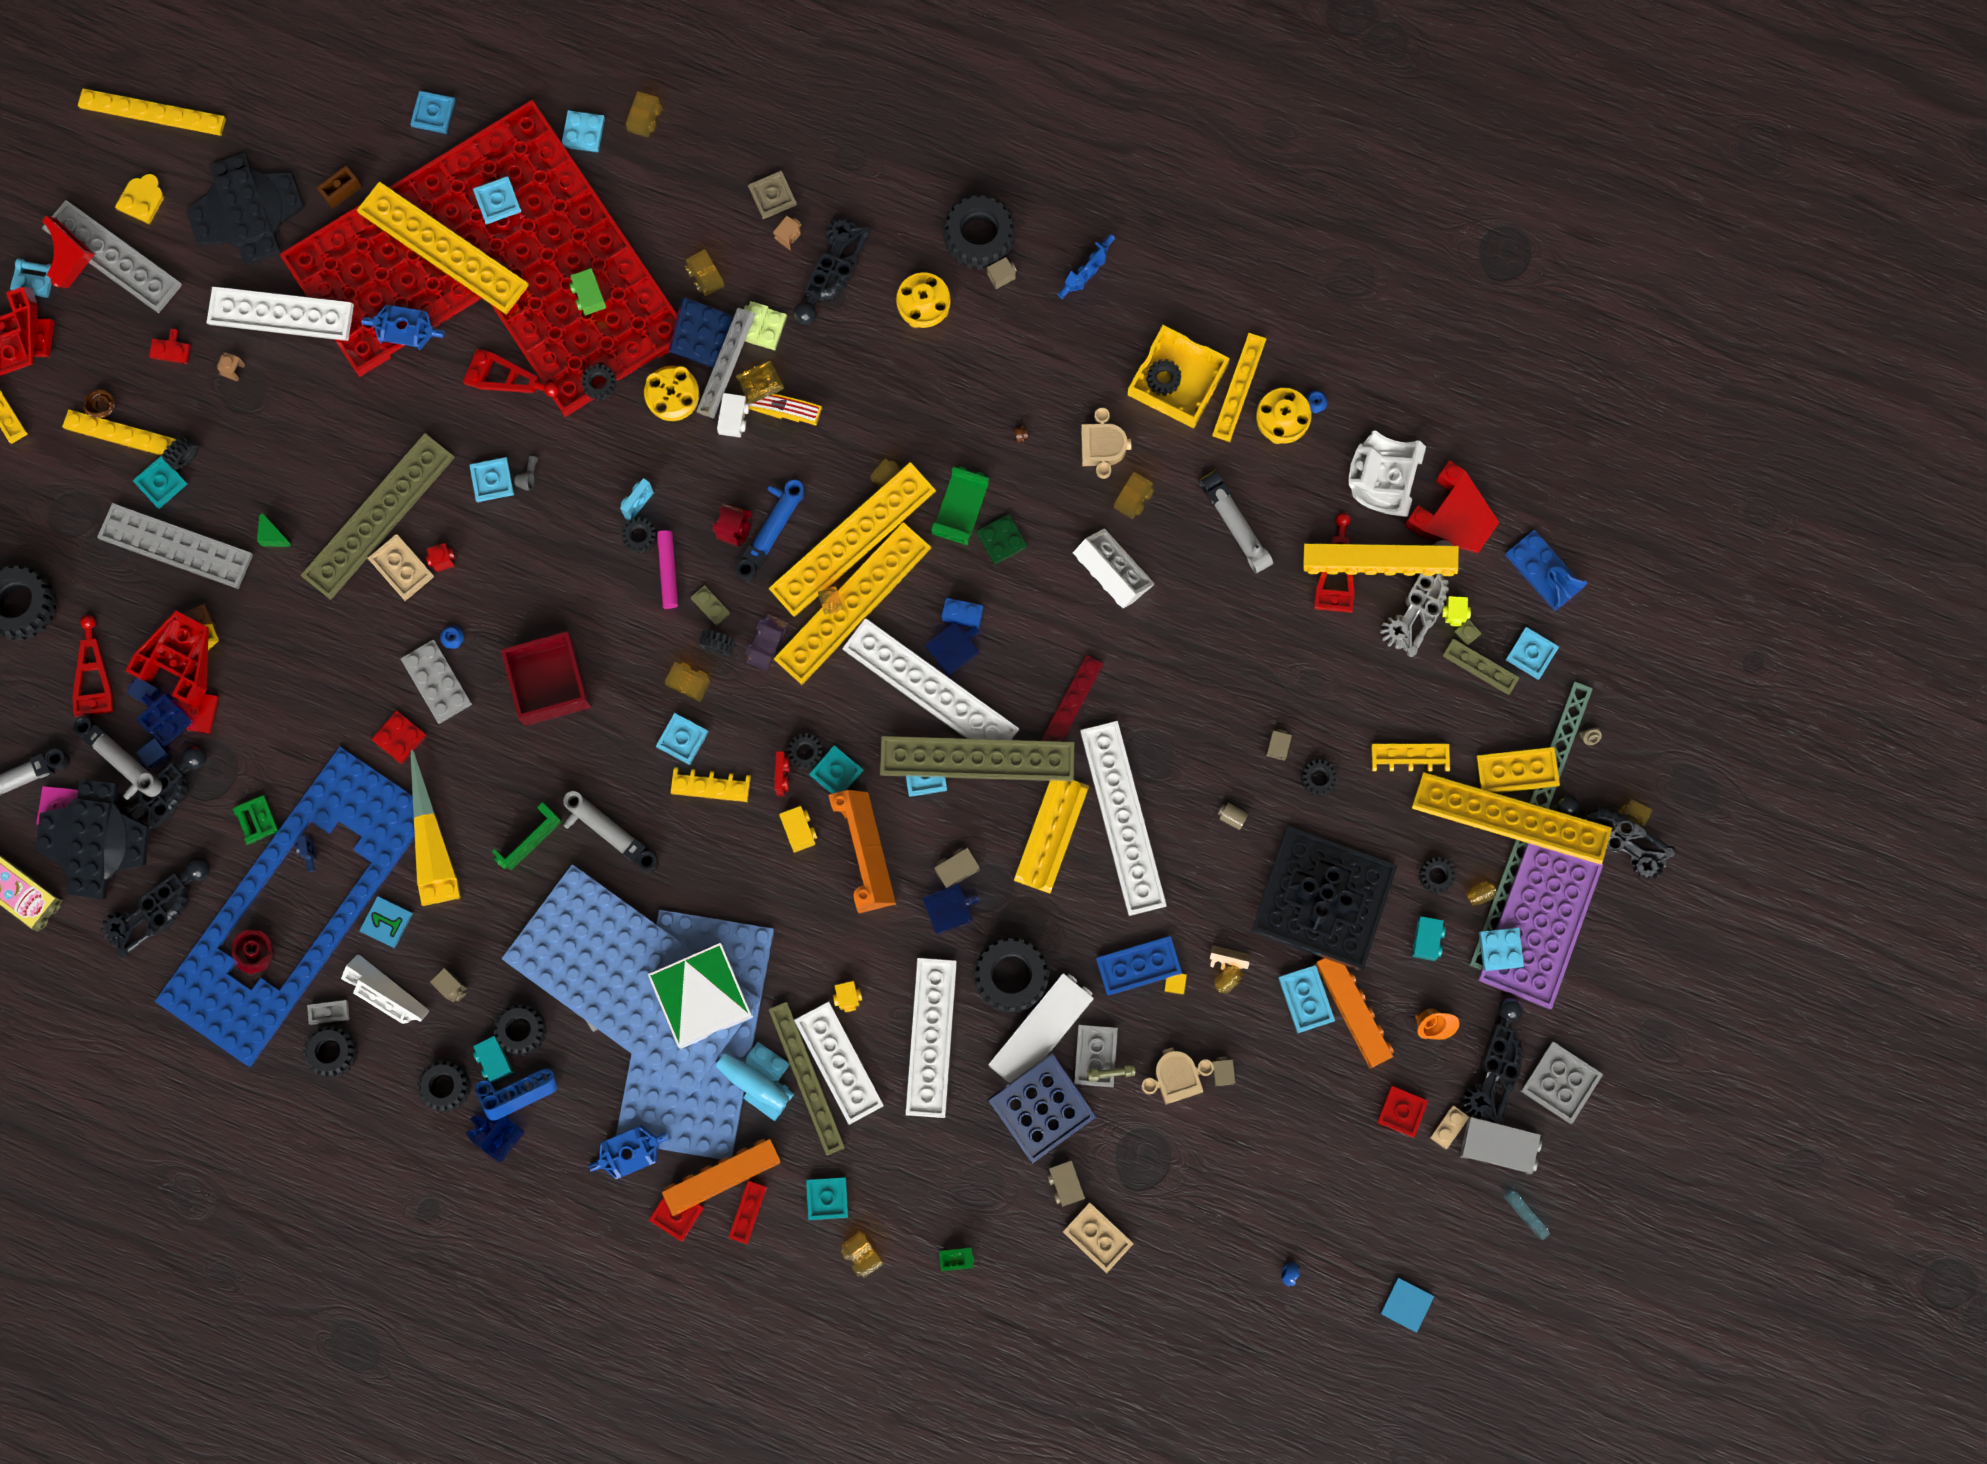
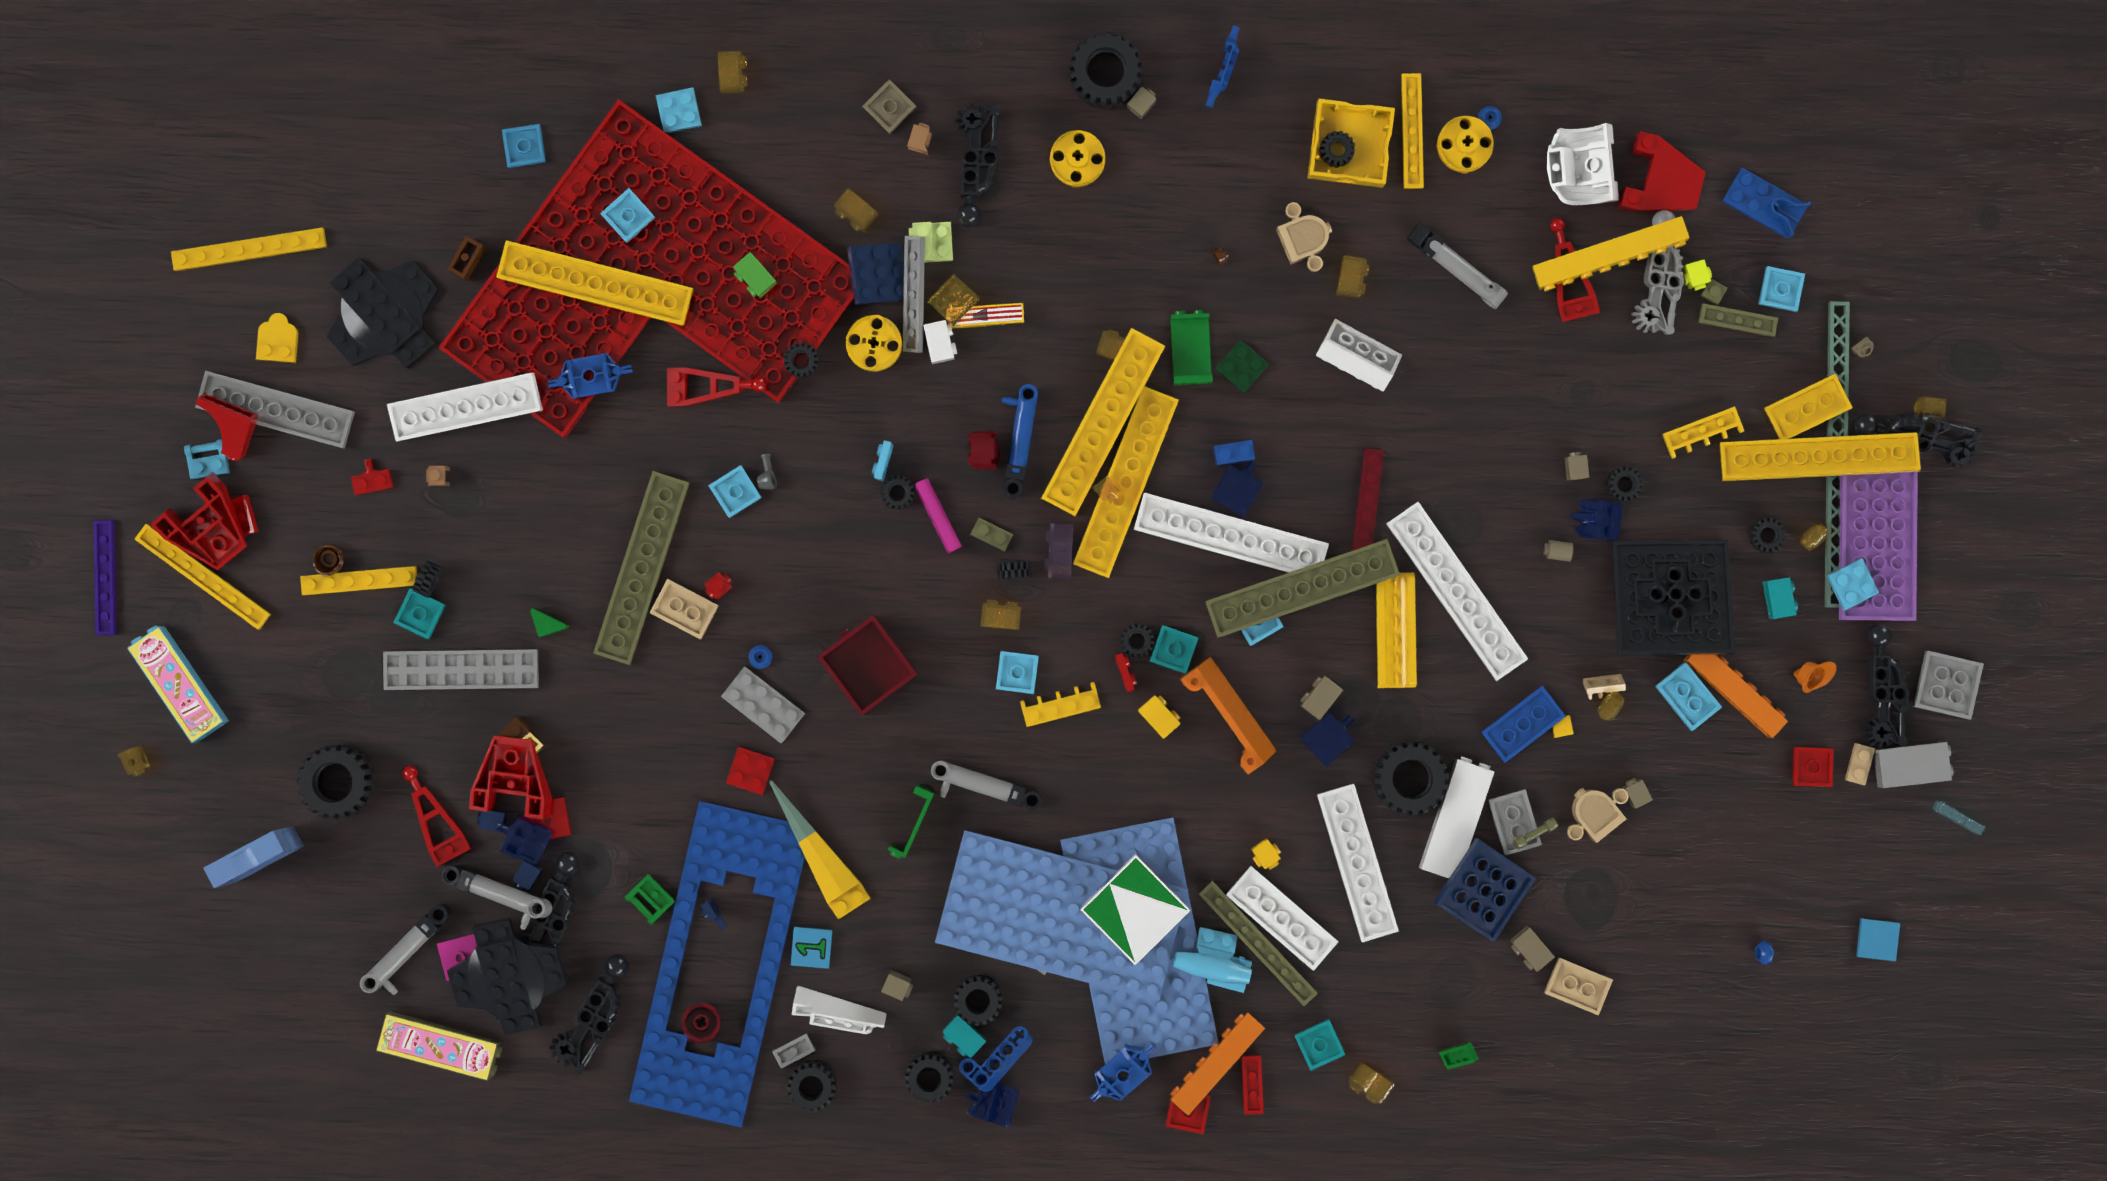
camera: 25 degrees left, 10 degrees up
(1282, 801) = (1599, 519): none -> clear blue plate

